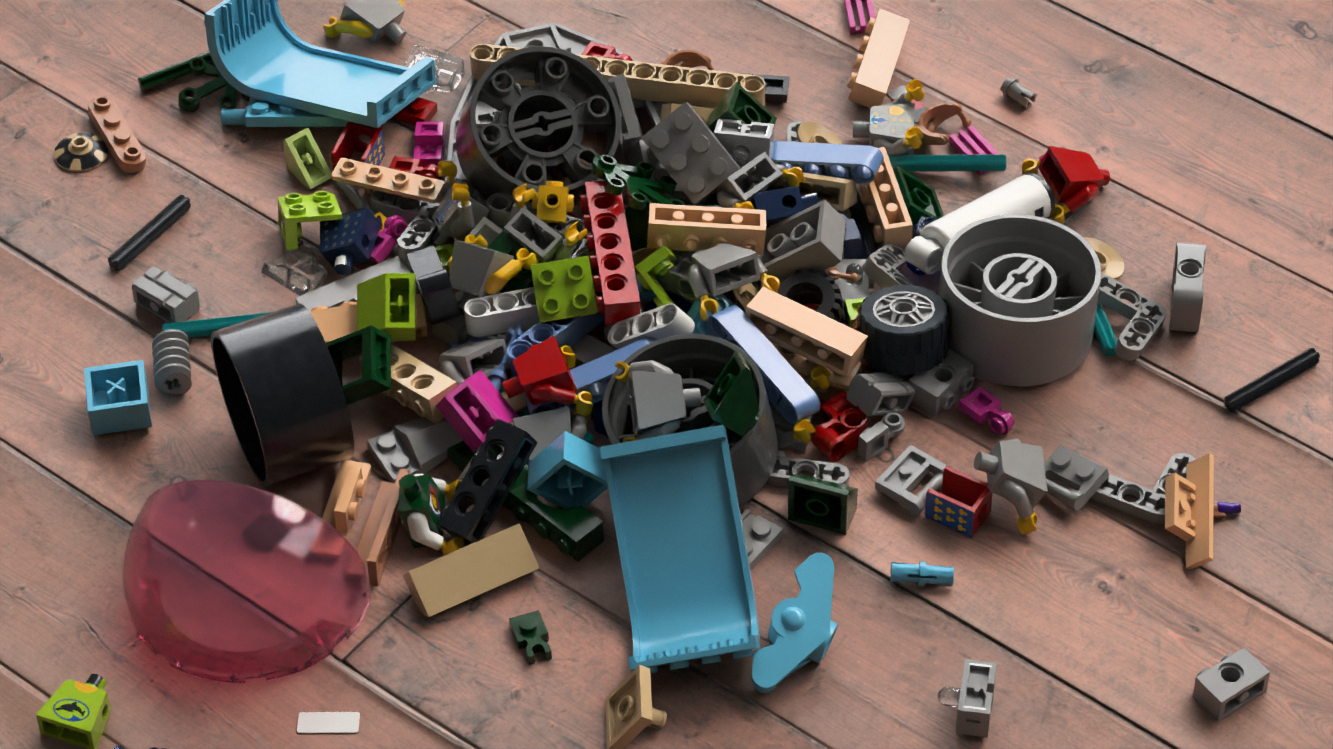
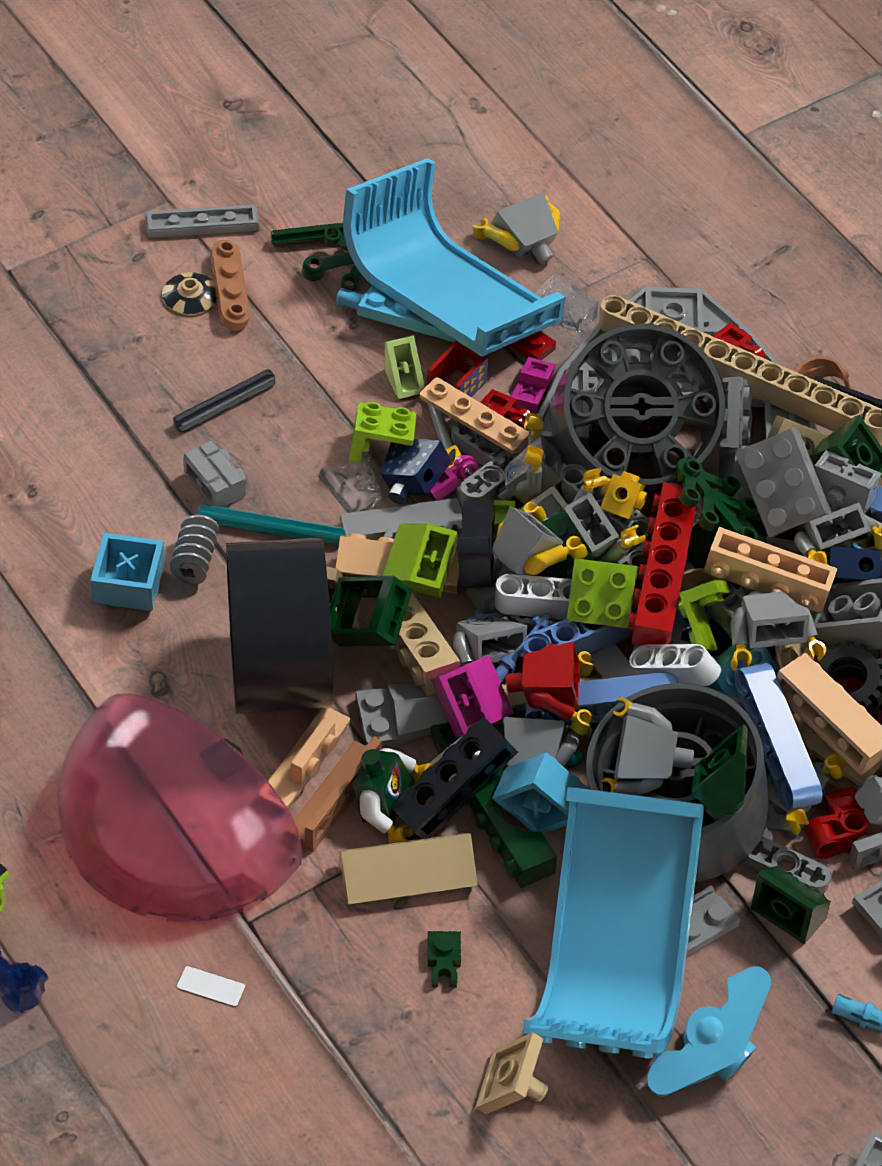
camera: 15 degrees right, 5 degrees up
(68, 87) = (202, 221): none -> light grey tile

